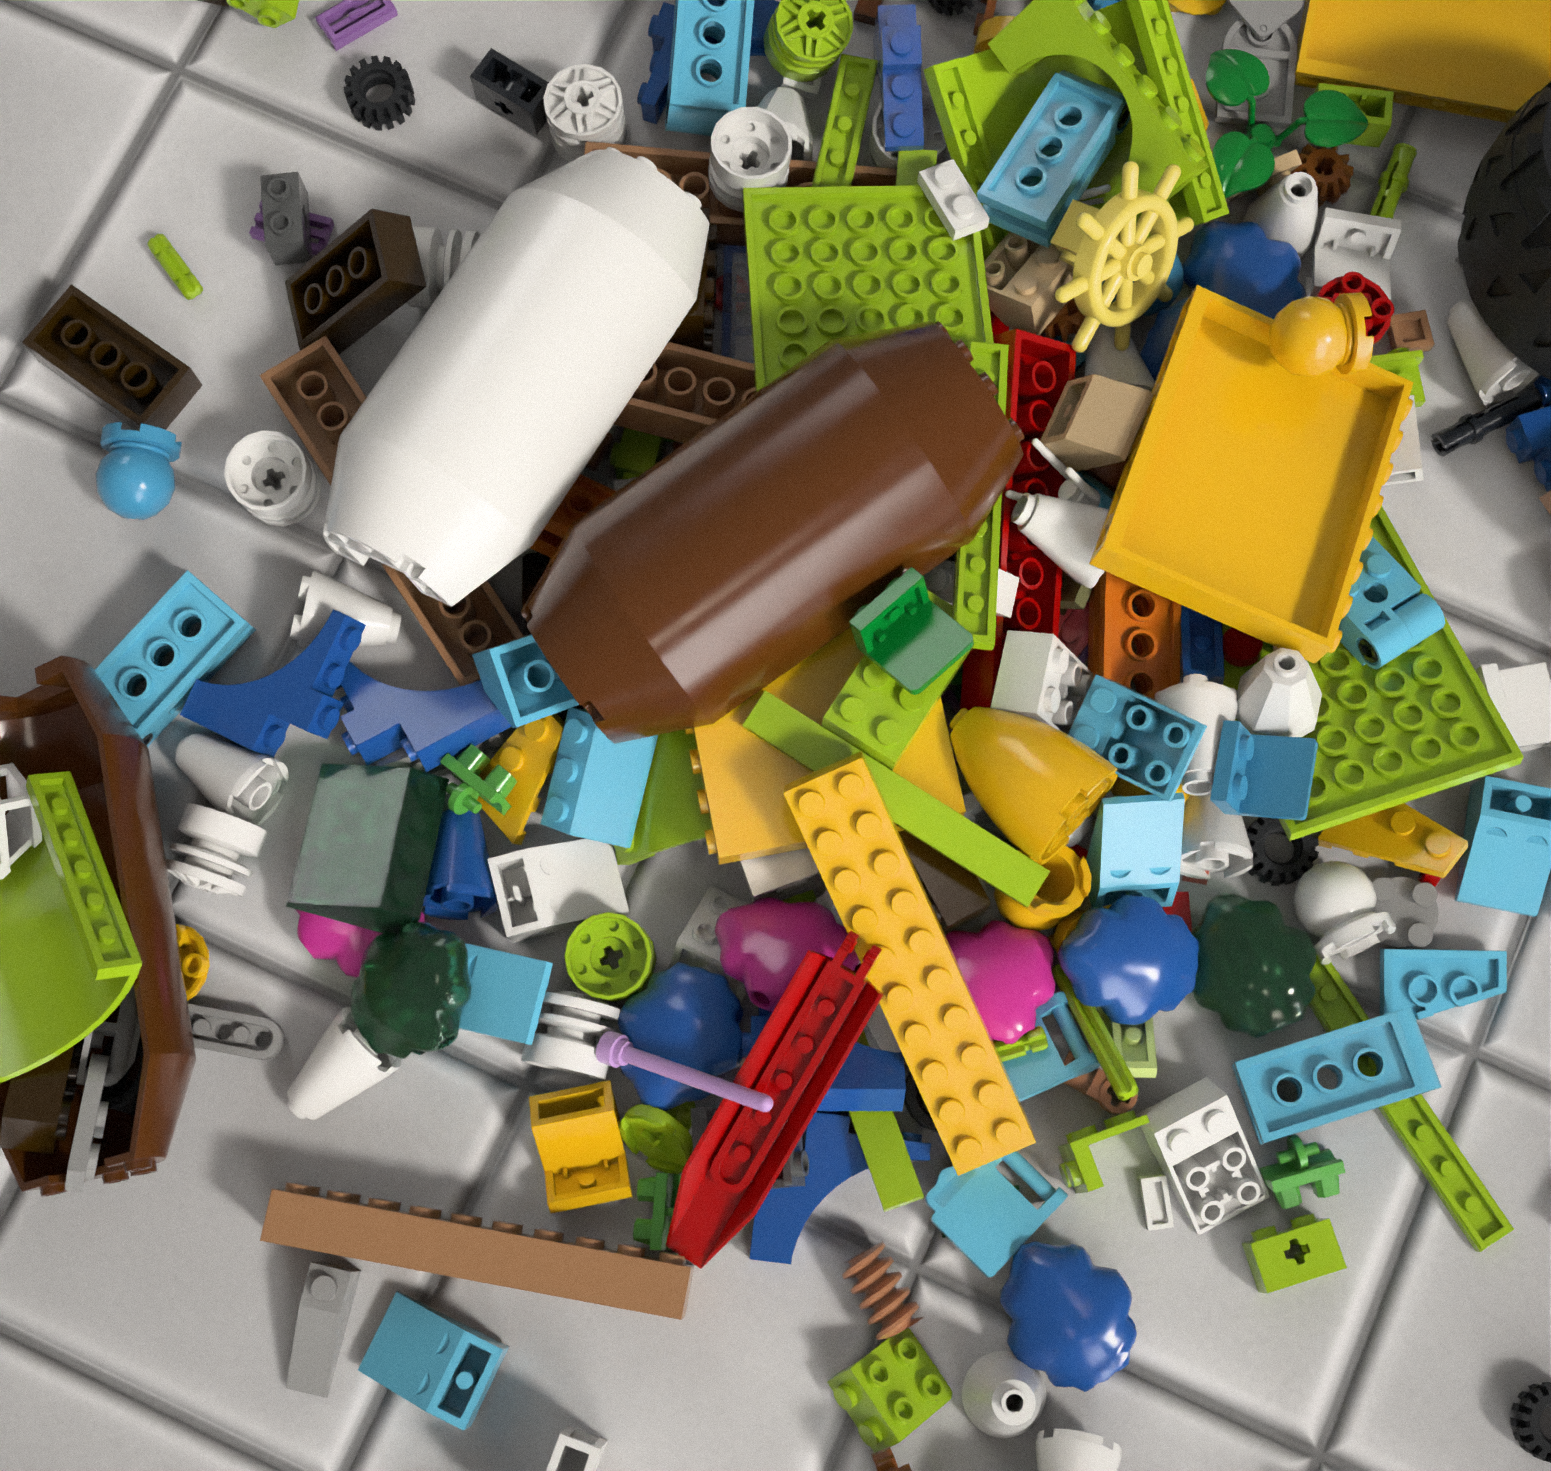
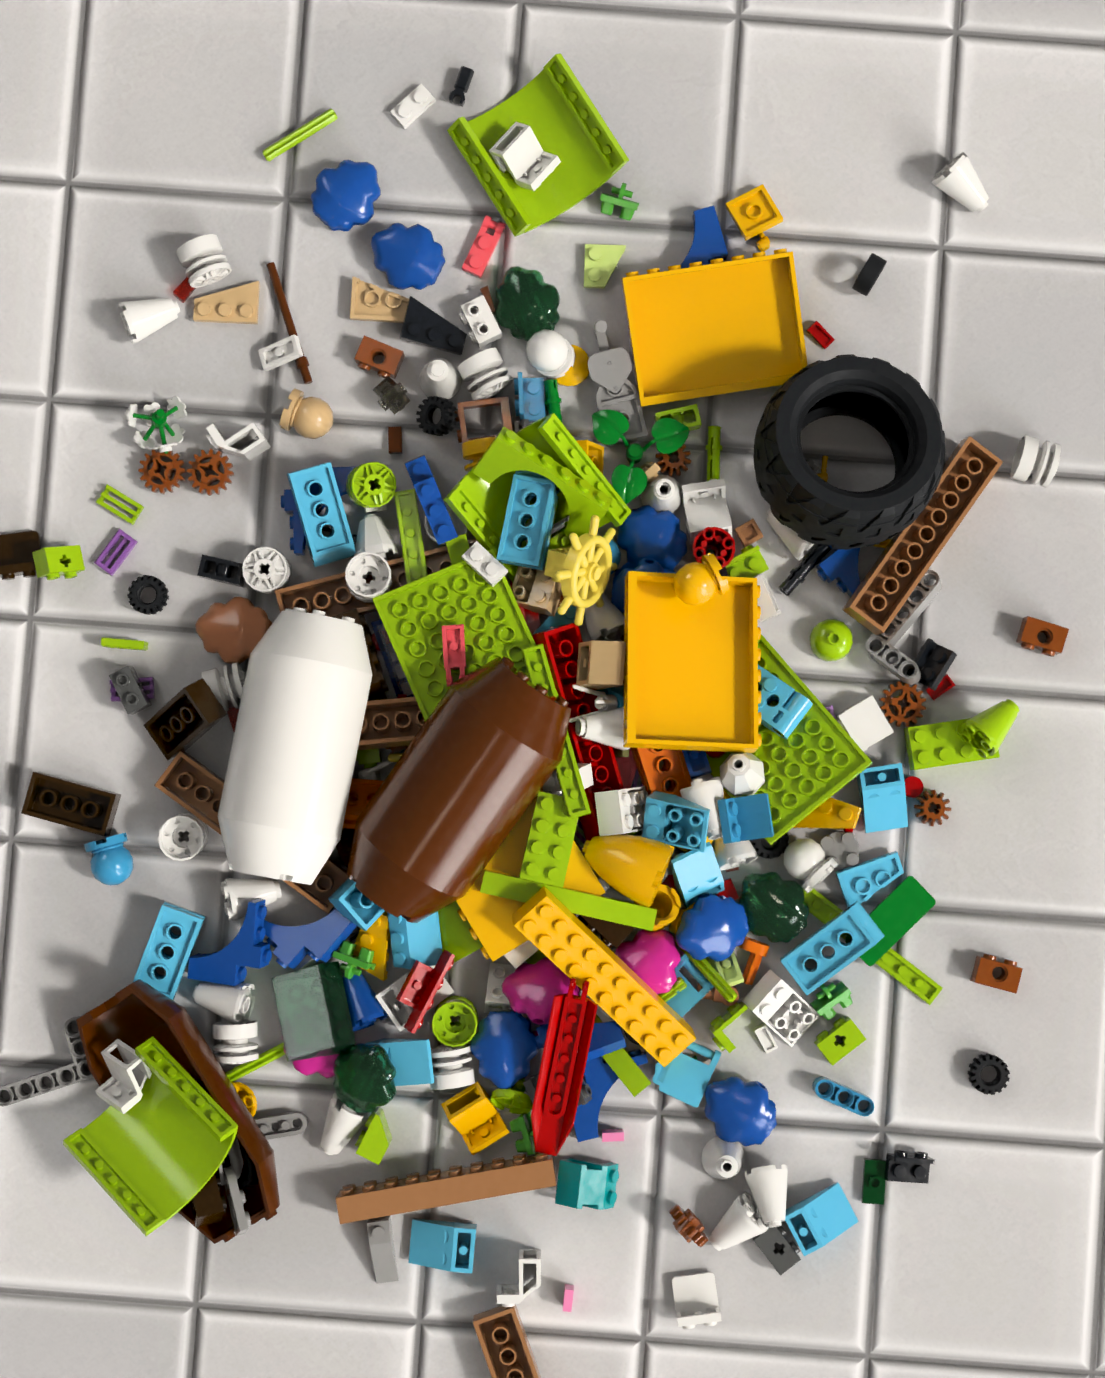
camera: 20 degrees left, 10 degrees up
(175, 266) = (78, 734): lime axle -> none
(232, 908) = (264, 1058): none -> lime axle
(309, 152) = (124, 644): none -> lime tile
(389, 1114) = (376, 1139): none -> lime slope
(480, 176) = (232, 629): none -> nougat piece
(574, 868) = (421, 988): none -> red bracket
(618, 1051) = (476, 1068): lavender piece -> none
(736, 1346) = (586, 1184): none -> teal piece
(816, 1273) = (611, 1135): none -> bright pink tile
(851, 300) = (453, 650): none -> coral hinge
(880, 1292) = (647, 1132): nougat piece -> none
(891, 1390) = (668, 1176): lime bracket -> none
(909, 633) = (548, 825): green bracket -> none
(1195, 1036) = (757, 951): none -> orange piece
(1286, 1370) = (852, 1101): none -> dark azure beam
(1471, 1067) = (897, 916): none -> green piece
(1496, 553) = (831, 640): none -> lime cylinder

